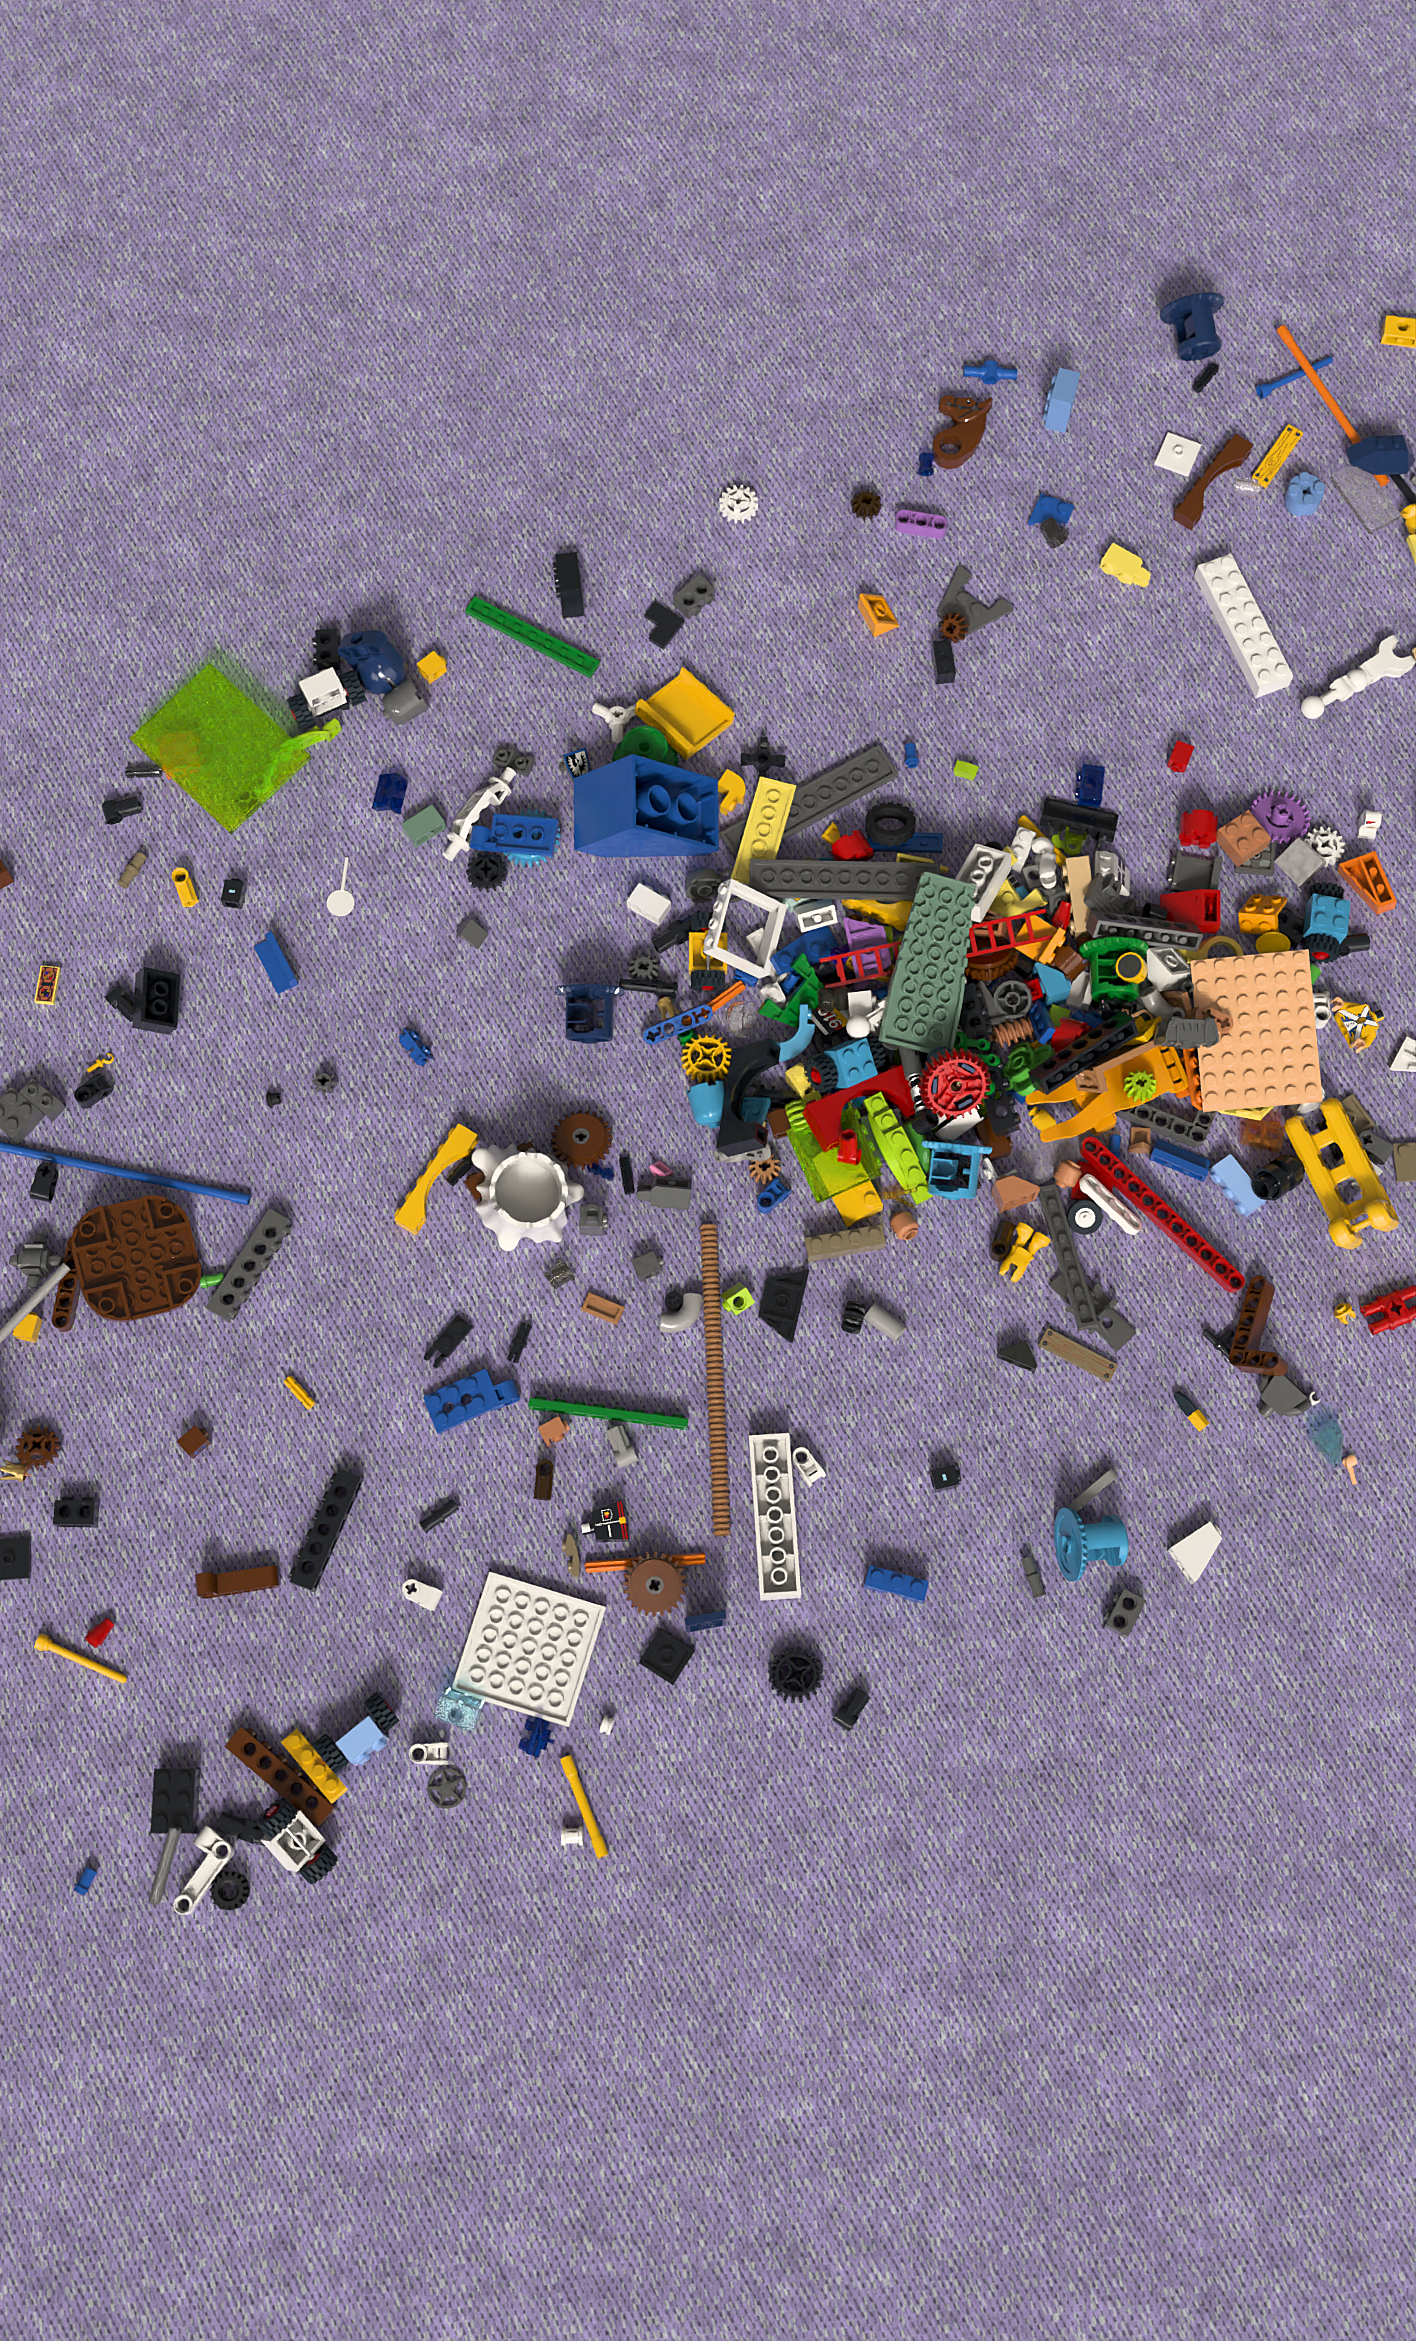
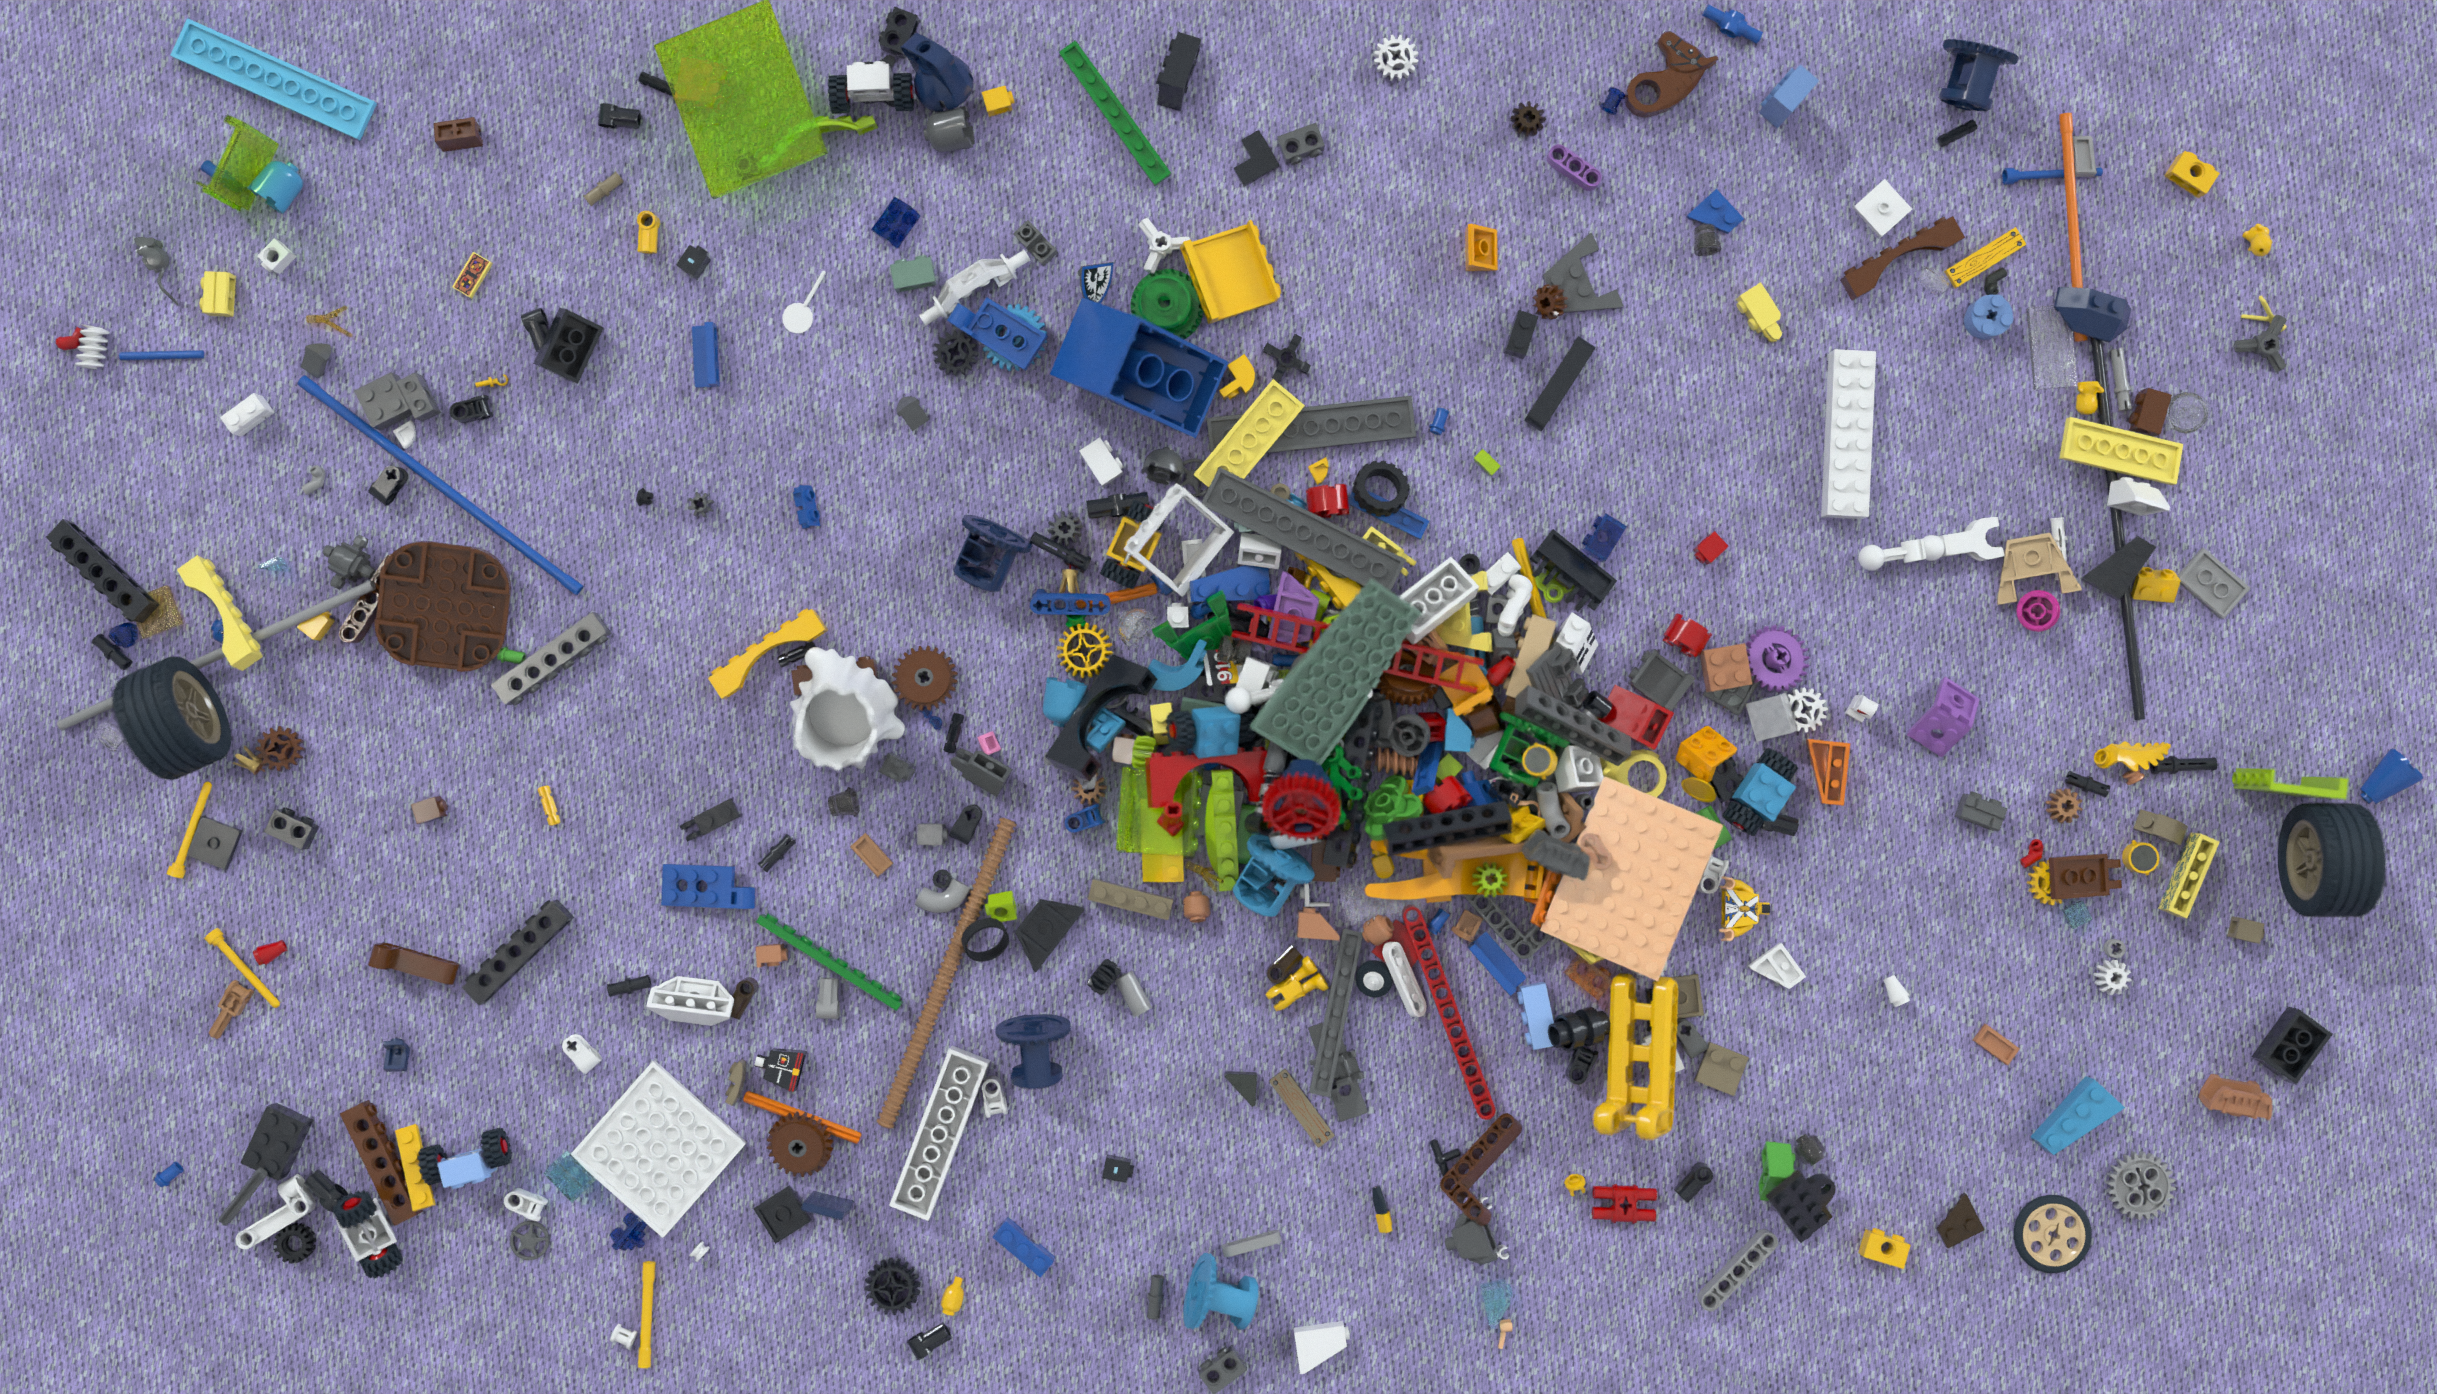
camera: 25 degrees right, 15 degrees up
(42, 1137) = (405, 434): none -> white tile
(83, 1695) = (232, 1005): none -> medium nougat connector
(253, 1672) = (396, 1055): none -> dark blue bracket
(502, 1502) = (691, 1001): none -> white wedge
(673, 1246) = (964, 826): none -> black piece
(752, 1333) = (989, 954): none -> black tyre
(825, 1403) = (1033, 1036): none -> dark blue piece
(854, 1661) = (952, 1297): none -> yellow plant
(993, 686) = (1559, 383): none -> black beam
(1291, 469) = (1991, 281): none -> pearl dark grey arm
(1294, 1206) = (1581, 1062): none -> black piece
(1312, 353) = (2084, 156): none -> light grey tile

